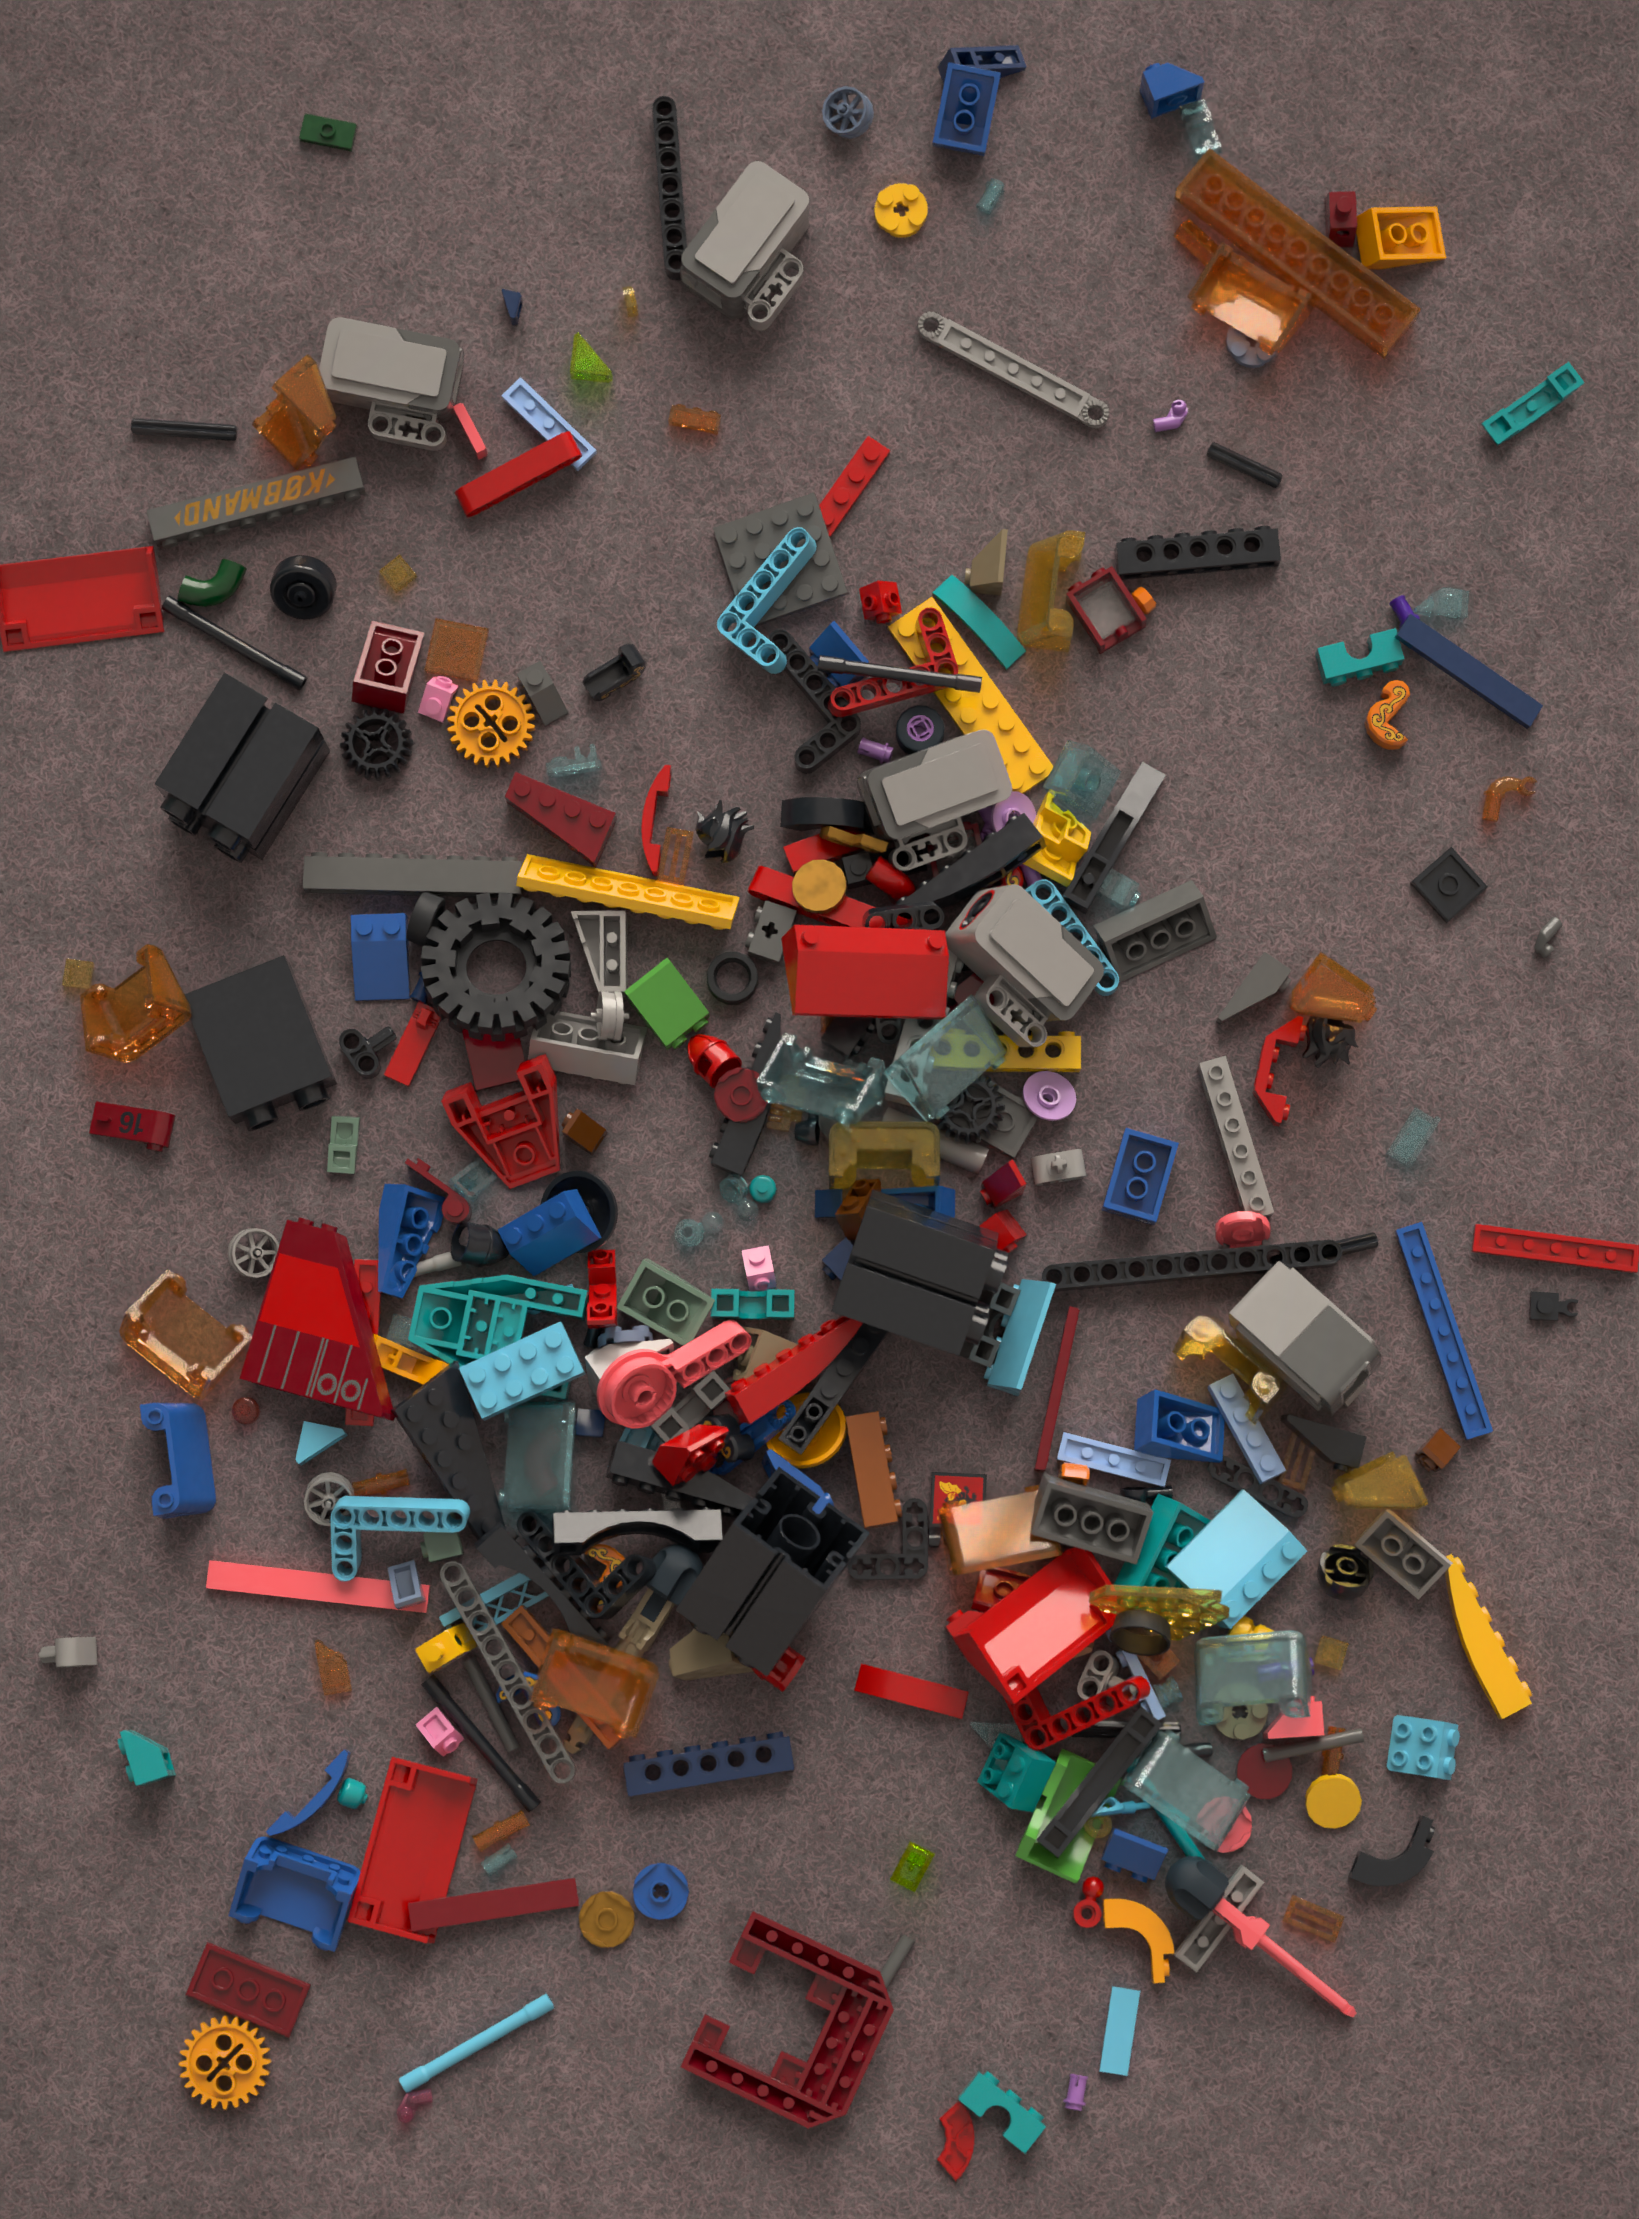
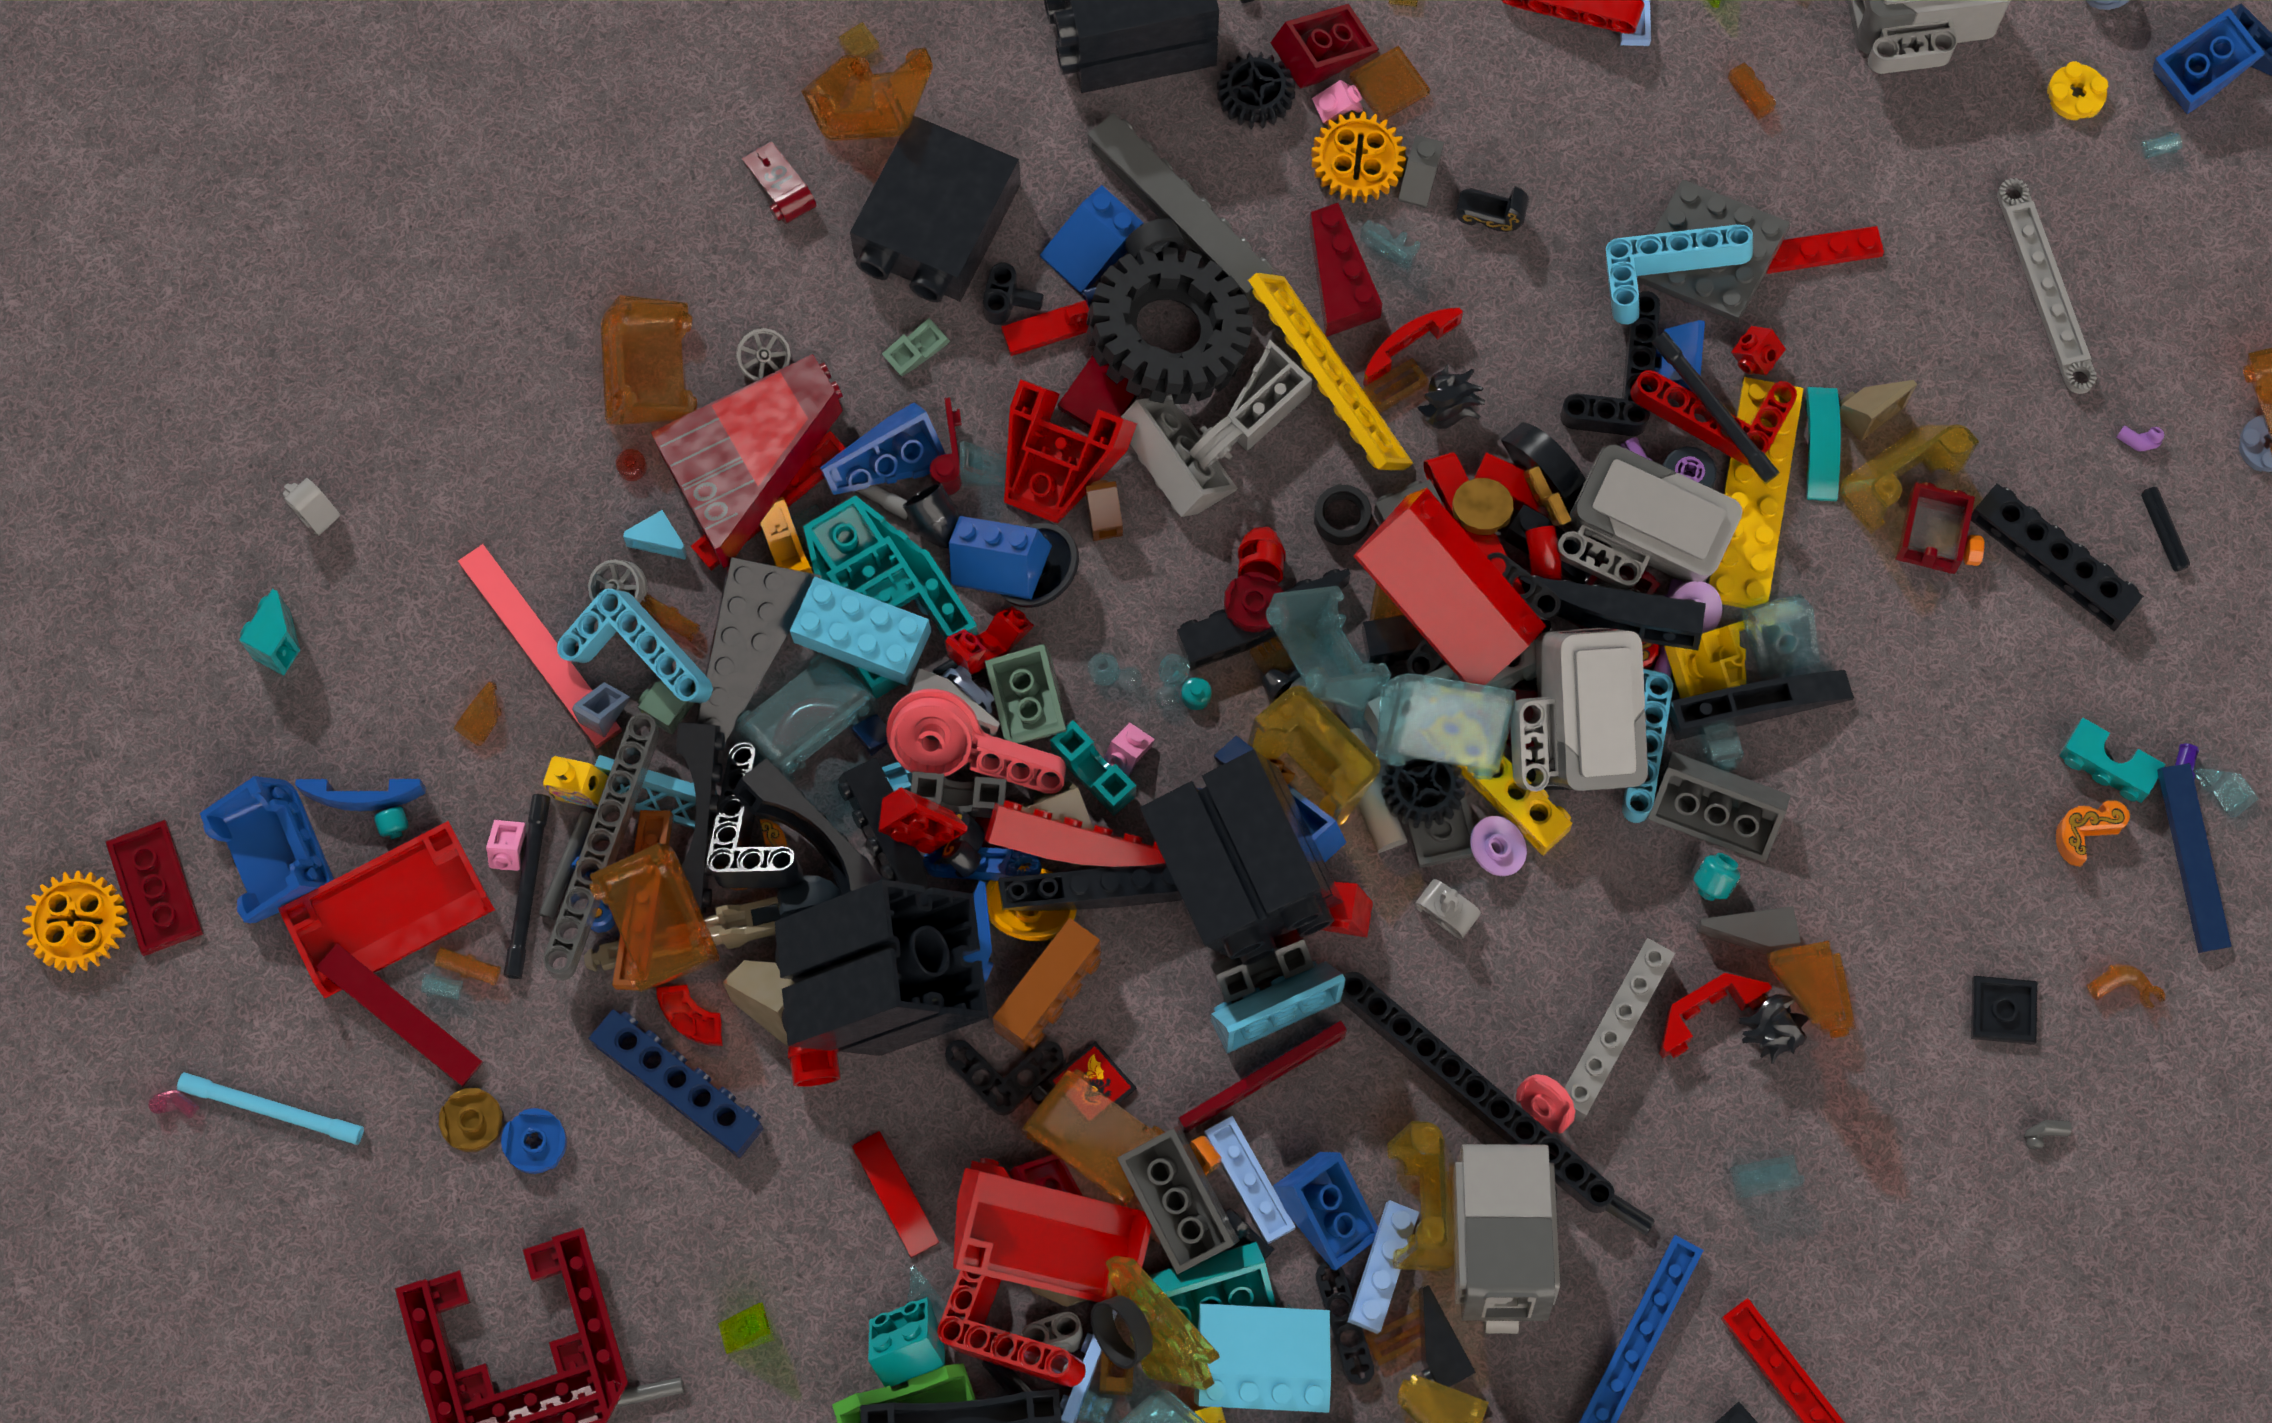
camera: 45 degrees right, 10 degrees down
(189, 1459) = (546, 451): blue windscreen -> none
(667, 1005) = (1270, 481): bright green slope -> none
(673, 1717) = (689, 1018): none -> red tile
(1003, 1185) = (1387, 874): red slope -> none
(1140, 1176) = (1505, 979): blue brick -> none
(1199, 978) = (1717, 876): none -> teal head

